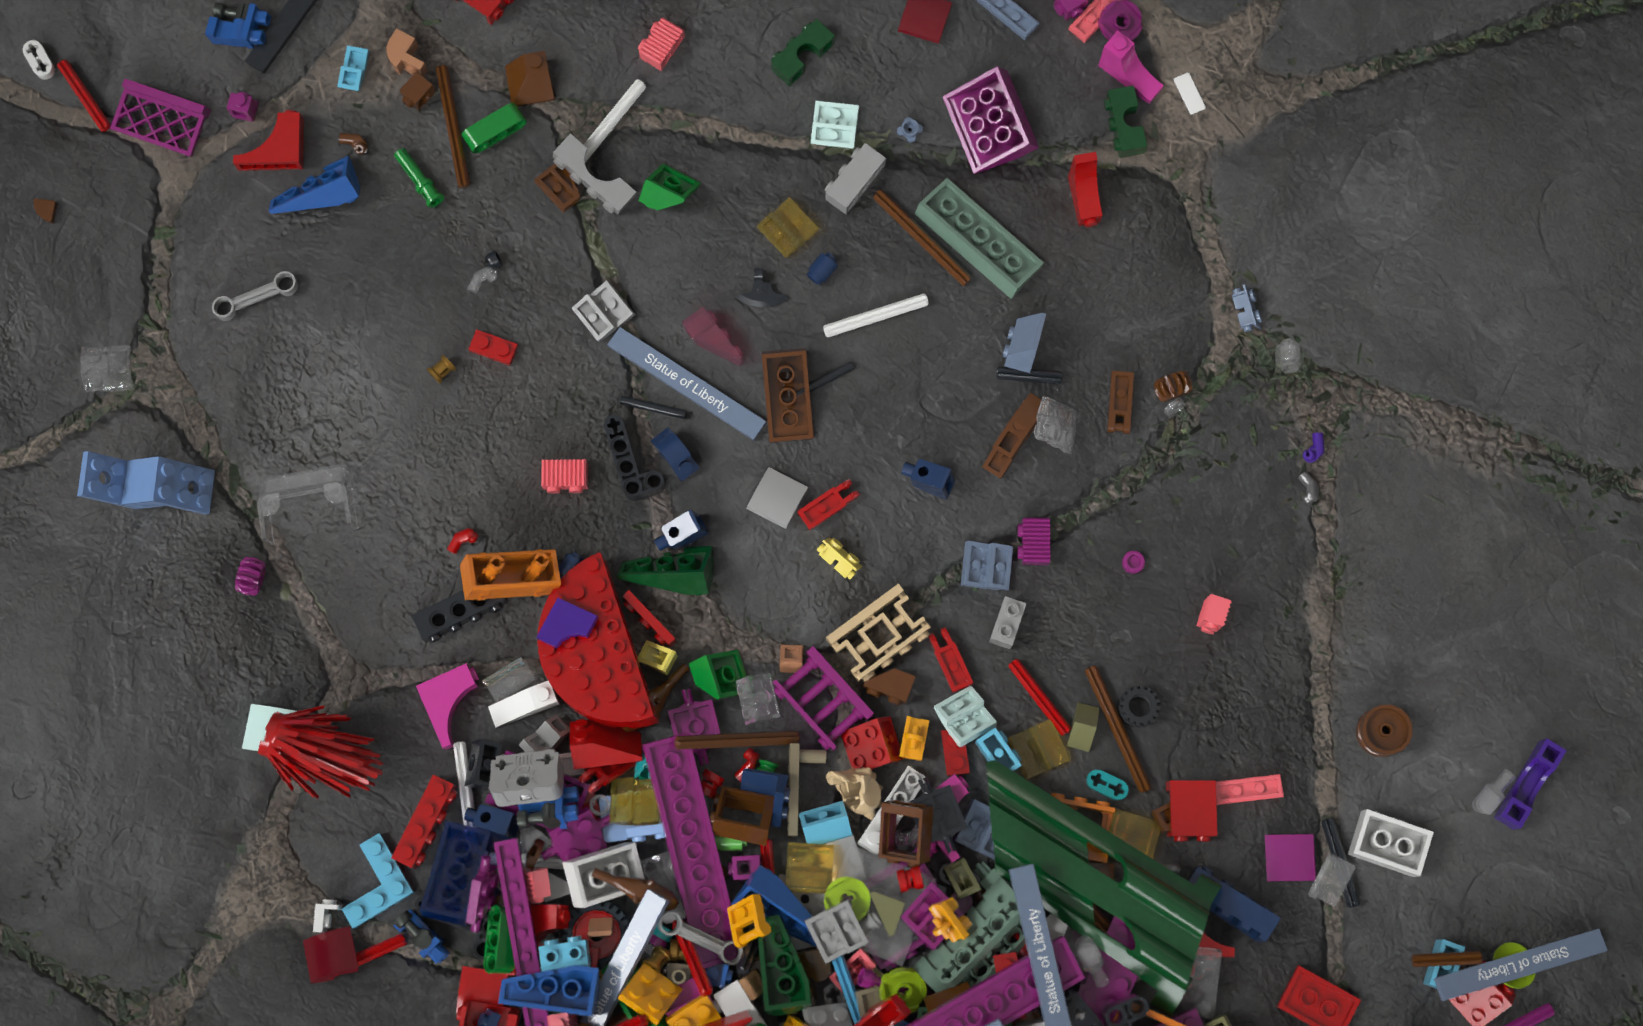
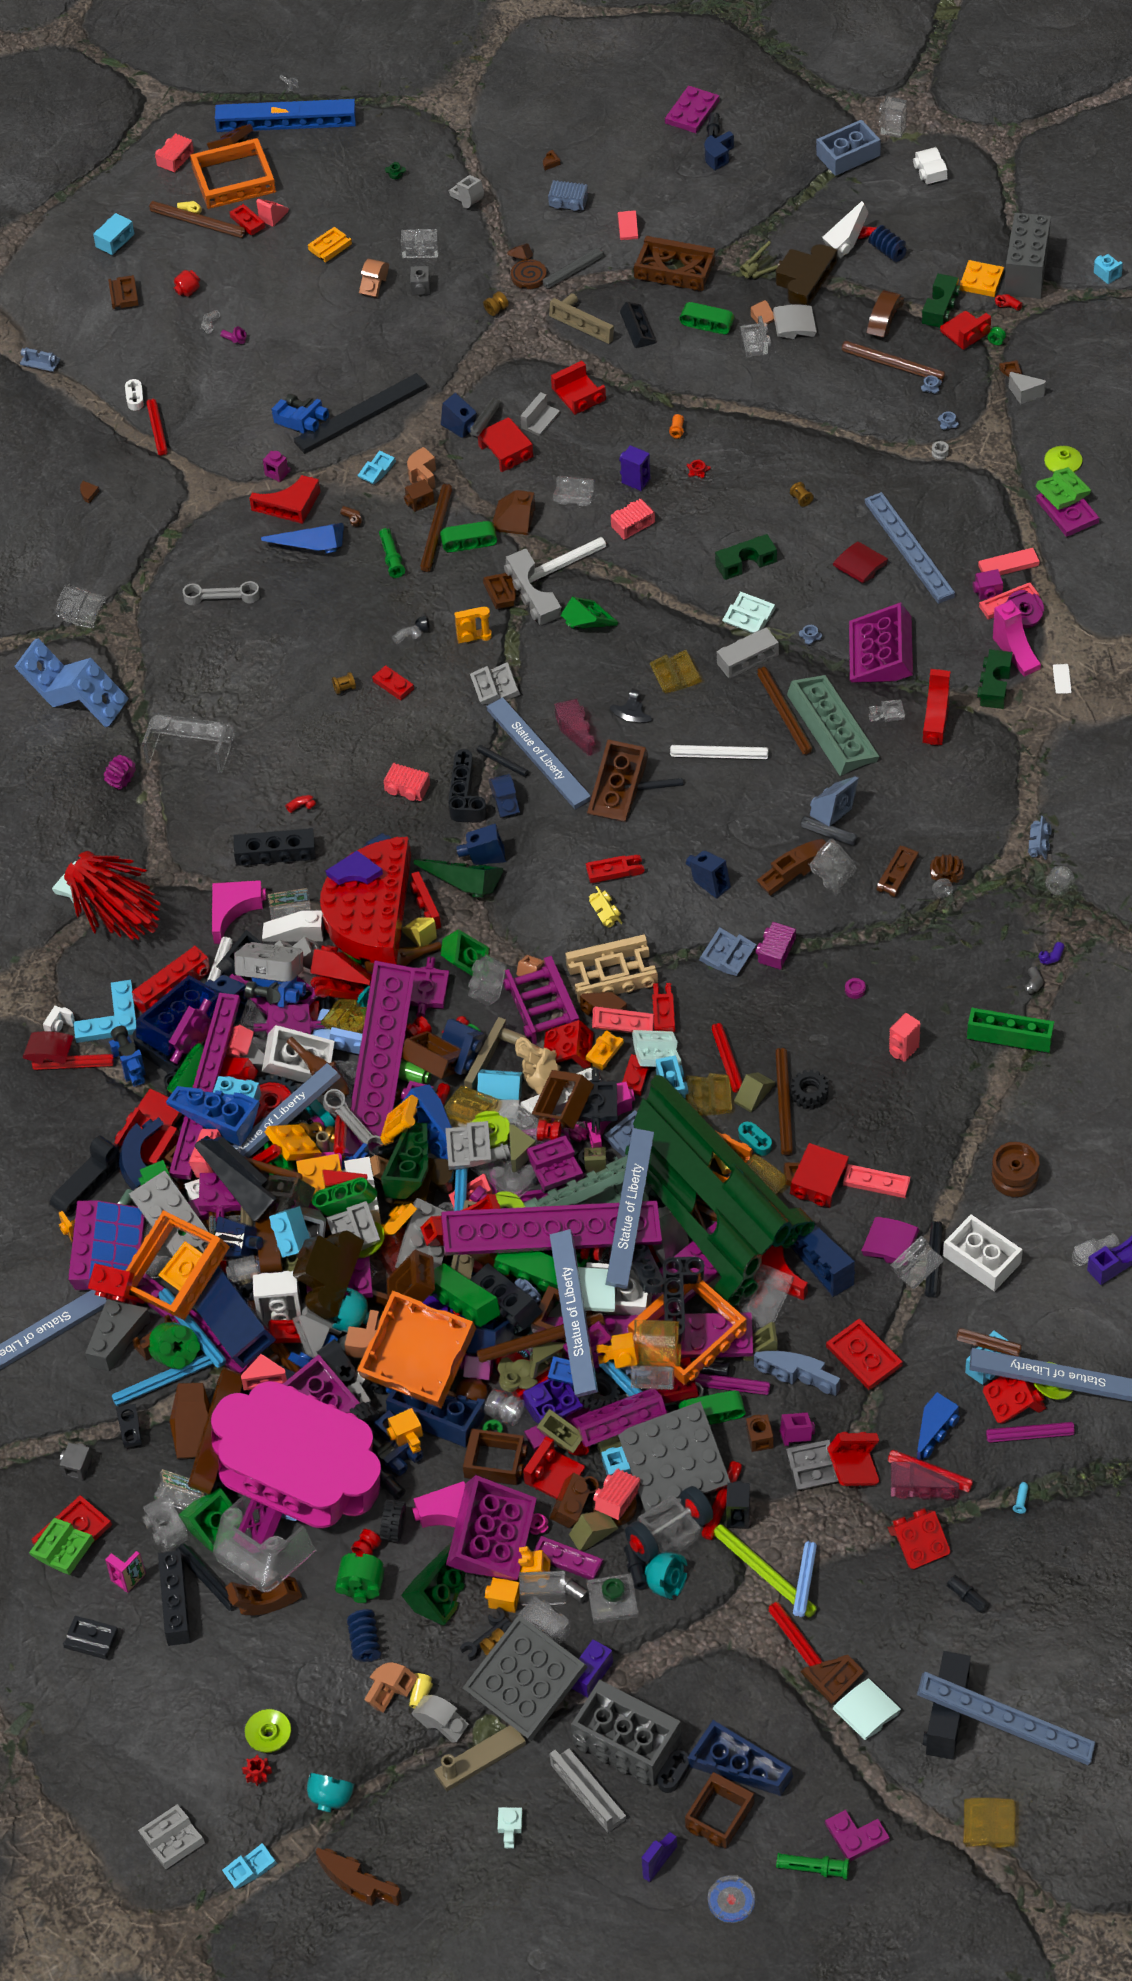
camera: 25 degrees right, 25 degrees down
(166, 100) = (206, 437): magenta fence -> none
(509, 574) = (326, 825): orange piece -> none
(534, 853) = (250, 1021): reddish brown tile -> none
(545, 252) = (466, 625): none -> light orange plate
(583, 29) = (574, 490): none -> clear bracket
(593, 803) = (315, 1007): clear bush -> none
(600, 927) = (275, 1094): nougat slope -> none
(736, 740) = (451, 992): reddish brown axle -> none
(777, 497) = (573, 851): light grey slope -> none
(822, 268) = (689, 705): dark blue brick -> none
(919, 699) = (621, 1020): none -> coral tile
(947, 922) = (563, 1162): light orange hips -> none
(1007, 622) = (724, 993): light grey brick -> none
(1032, 200) = (890, 710): none -> clear plate
(1091, 960) = (674, 1236): clear arm -> none
(1313, 562) = (1010, 1030): none -> green brick

